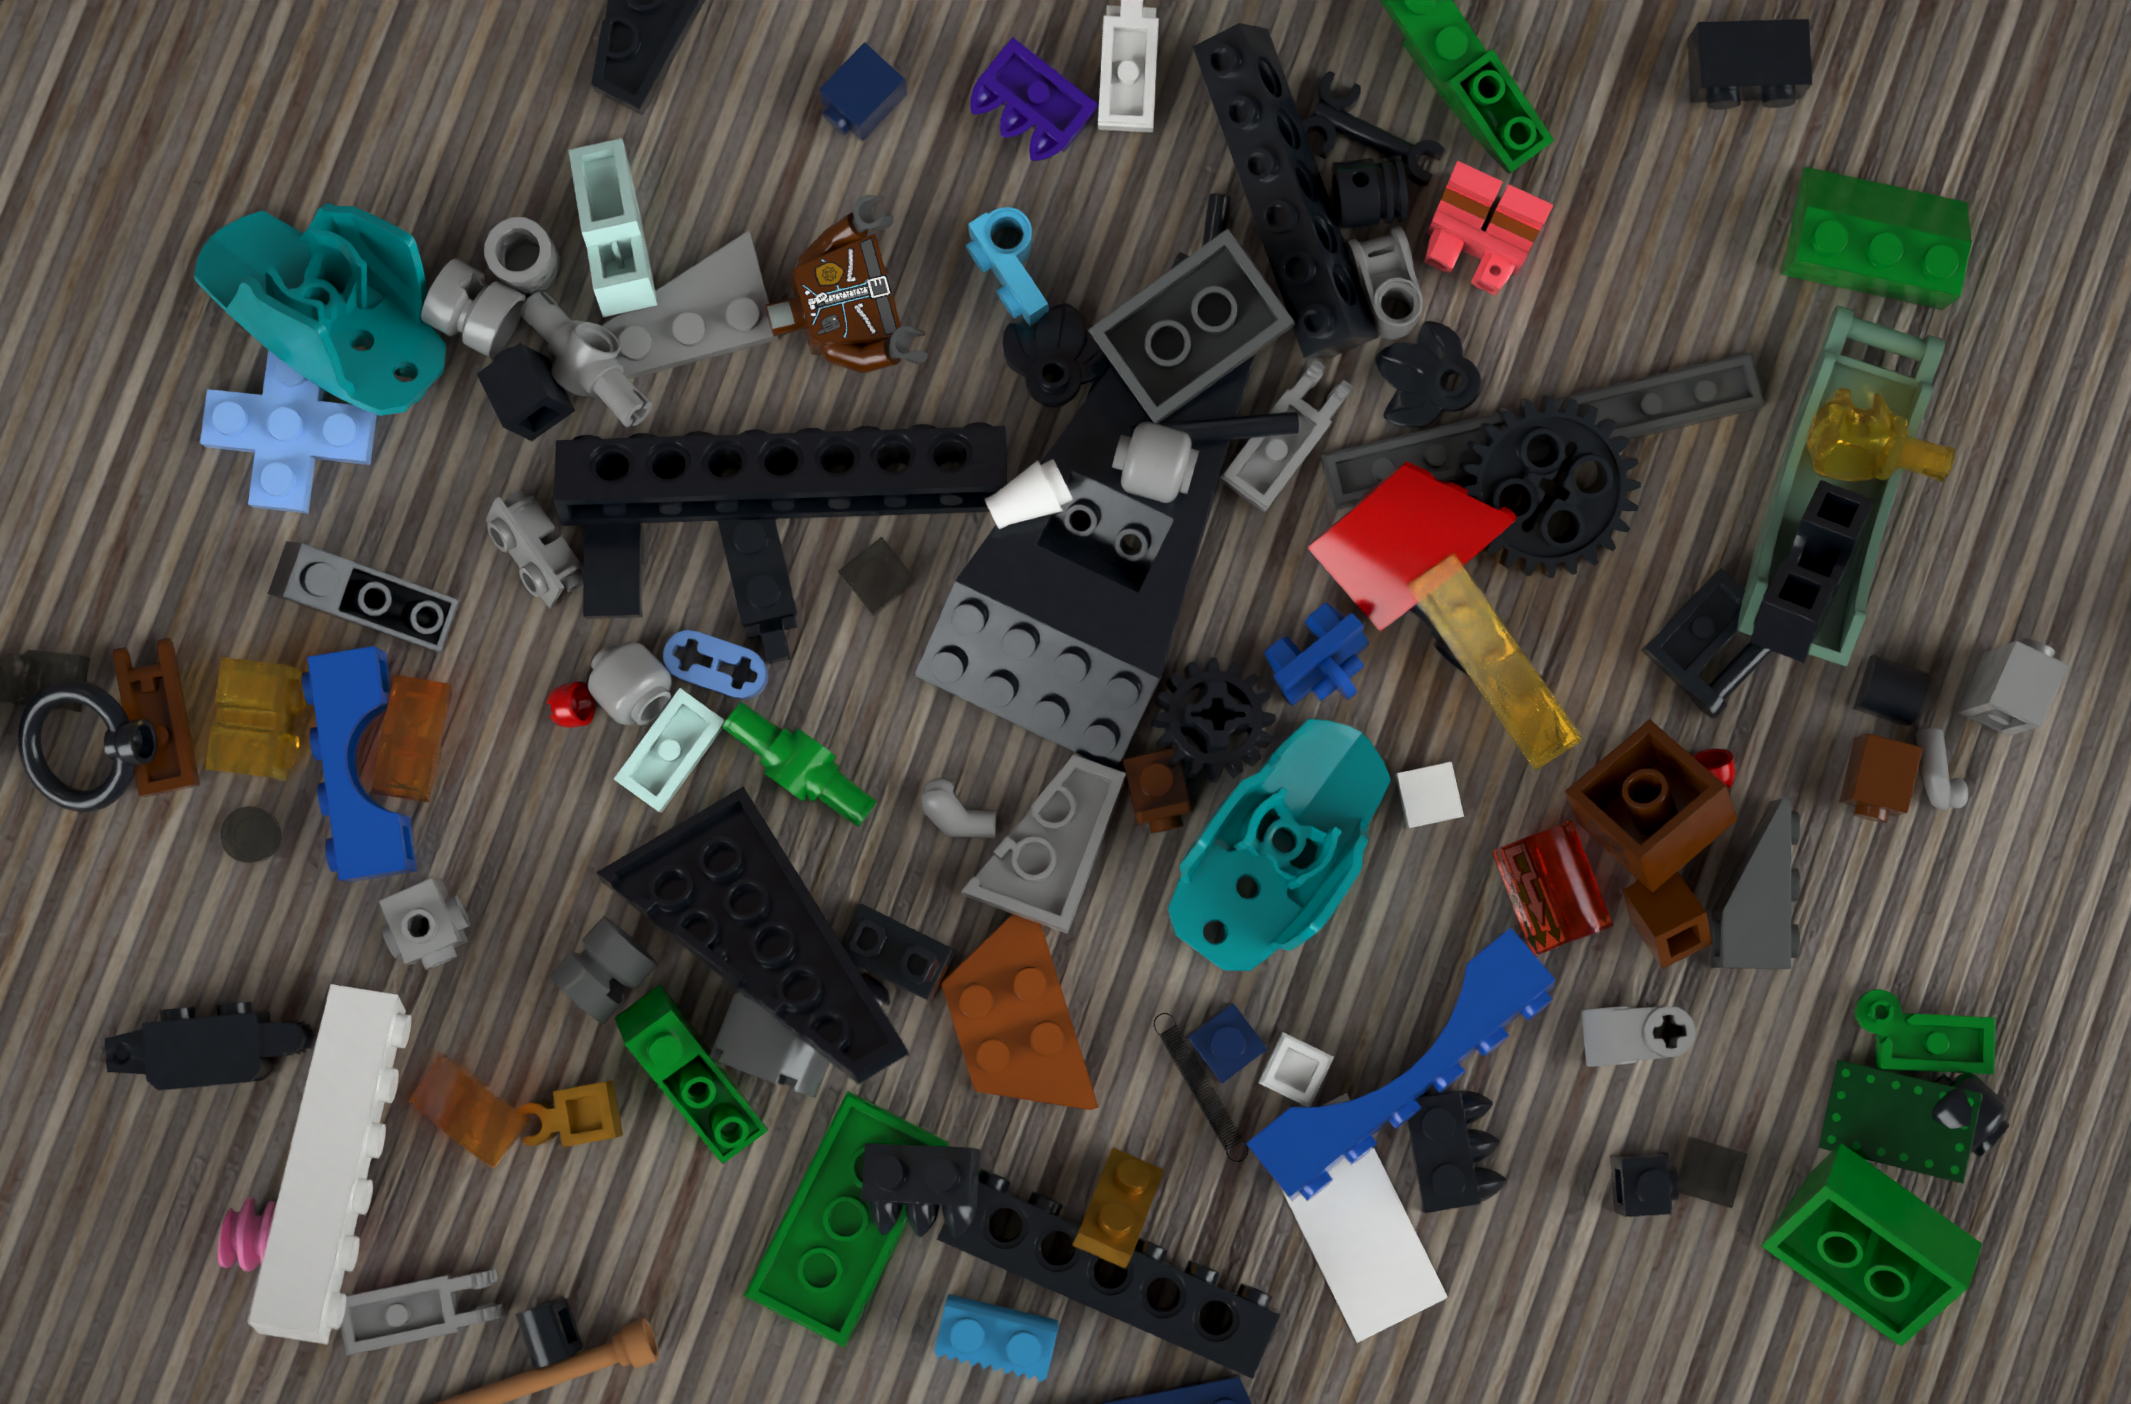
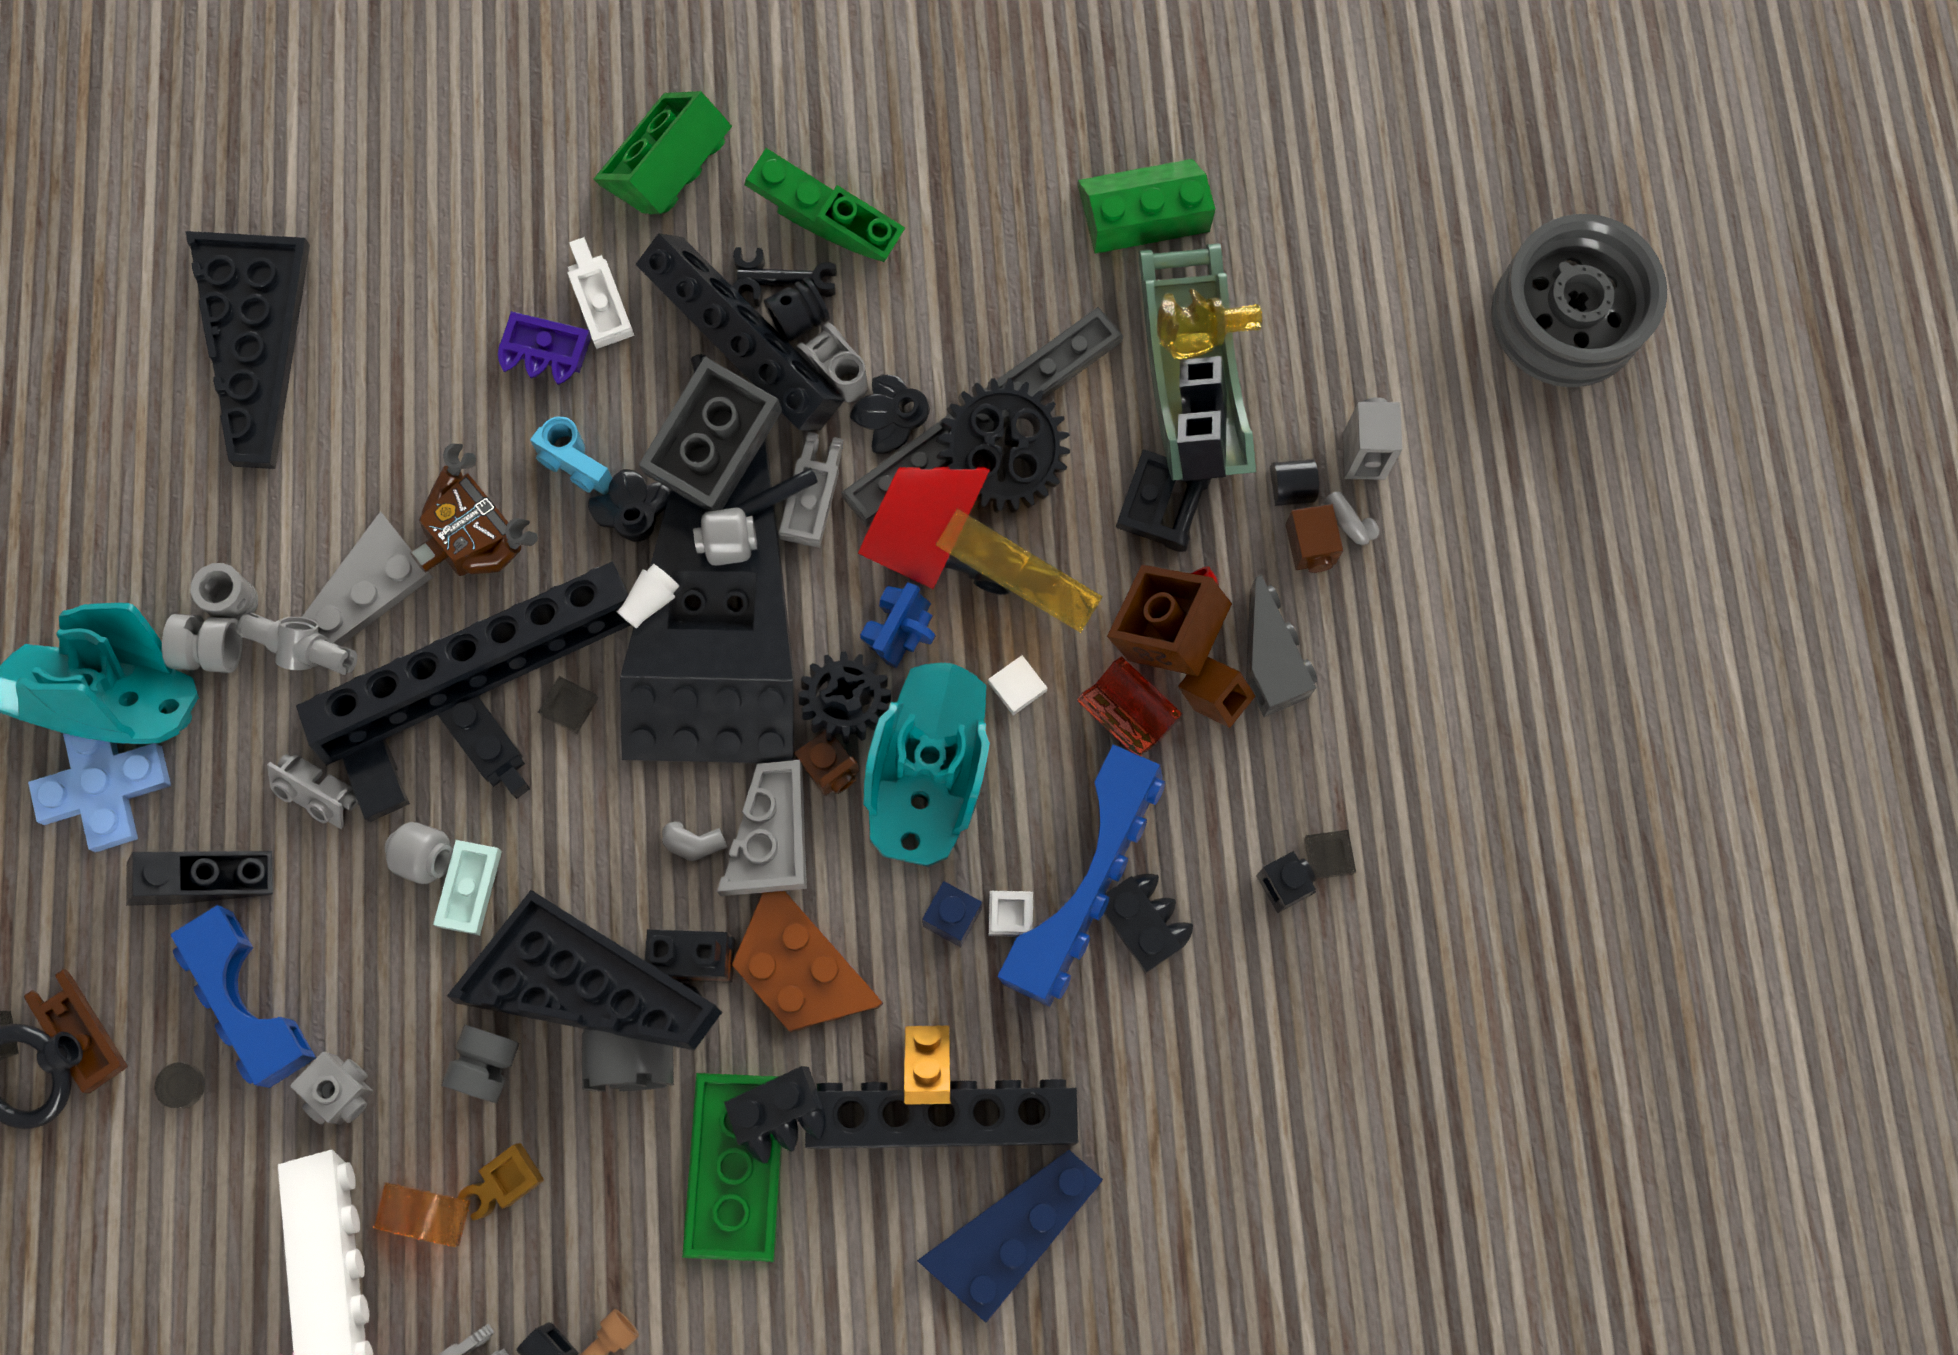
camera: 25 degrees left, 10 degrees down
(206, 1050) = (204, 1258): black hinge -> none
(255, 719) = (150, 999): clear yellow brick -> none
(411, 738) = (273, 963): clear orange slope -> none
(525, 392) = (253, 679): black brick -> none
(561, 707) = (377, 881): red hinge -> none
(612, 228) = (282, 550): light aqua slope -> none
(693, 1081) = (576, 1112): green slope -> none
(711, 677) = (478, 824): medium blue beam -> none
(799, 764) = (564, 856): green pin -> none
(861, 93) = (422, 389): dark blue brick -> none
(996, 1337) = (879, 1200): dark azure brick -> none
(1188, 1079) = (958, 955): black piece -> none
(1367, 1246) = (1117, 1016): white sticker -> none
(1507, 236) = (866, 304): coral hips -> none
(1626, 1034) = (1226, 784): light grey piece -> none
(1749, 62) = (1010, 129): black brick -> none
(1873, 1245) = (1464, 853): green slope -> none
(1891, 1122) = (1440, 758): dark green sticker -> none
(1926, 1040) = (1429, 698): green hinge -> none
(1955, 1111) = (1480, 735): black head -> none

